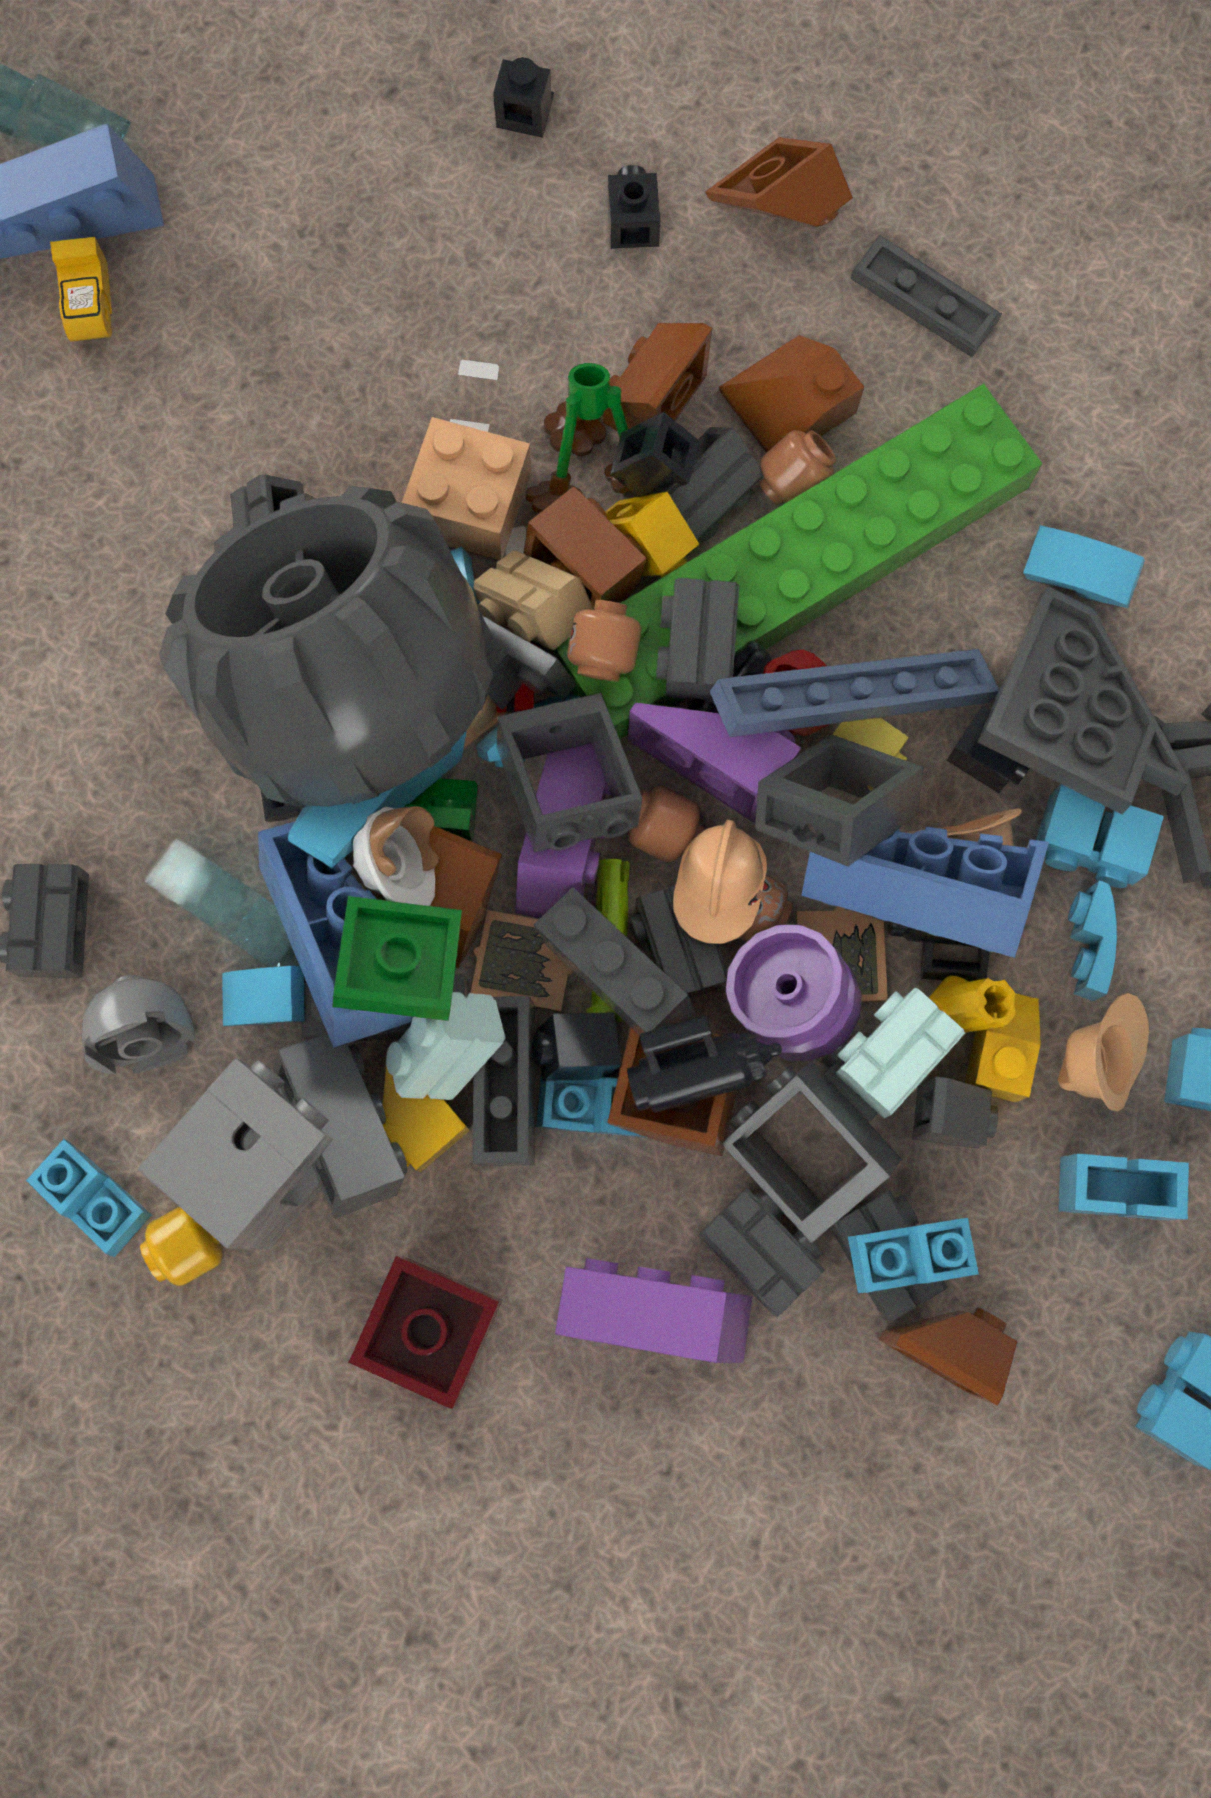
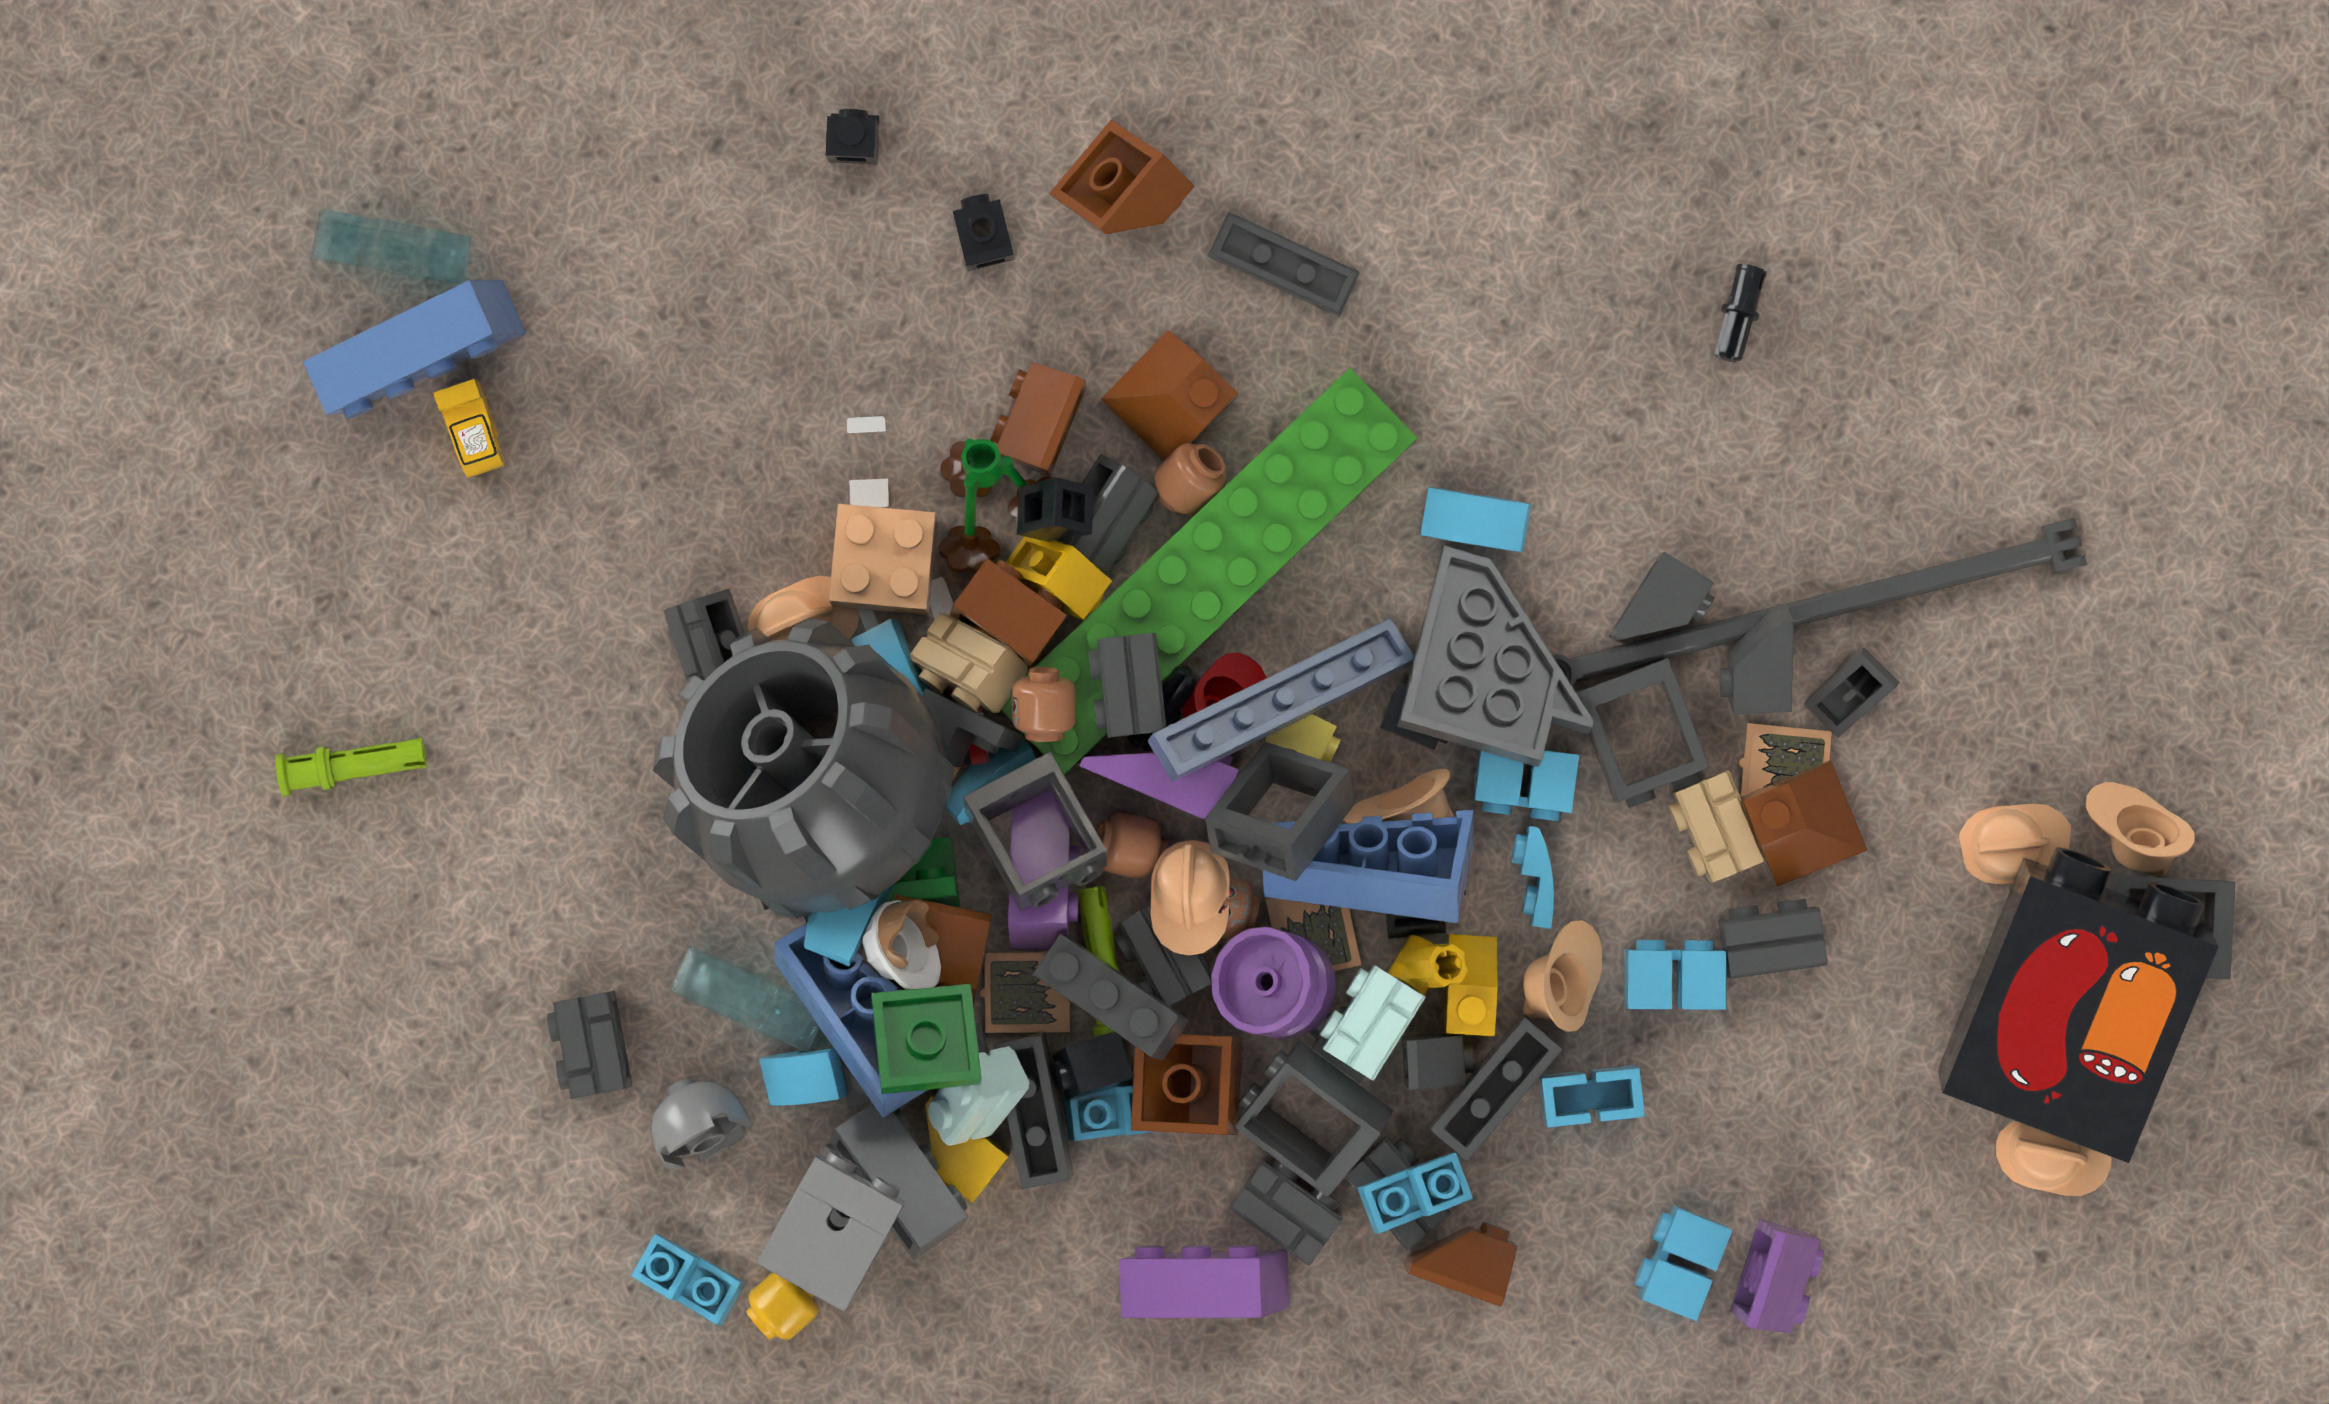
camera: 10 degrees left, 10 degrees up
(425, 1331) = (1010, 1336): dark red brick -> none
(695, 1069) = (1197, 1072): black piece -> none
(1018, 1156) = (1494, 1087): none -> dark grey brick

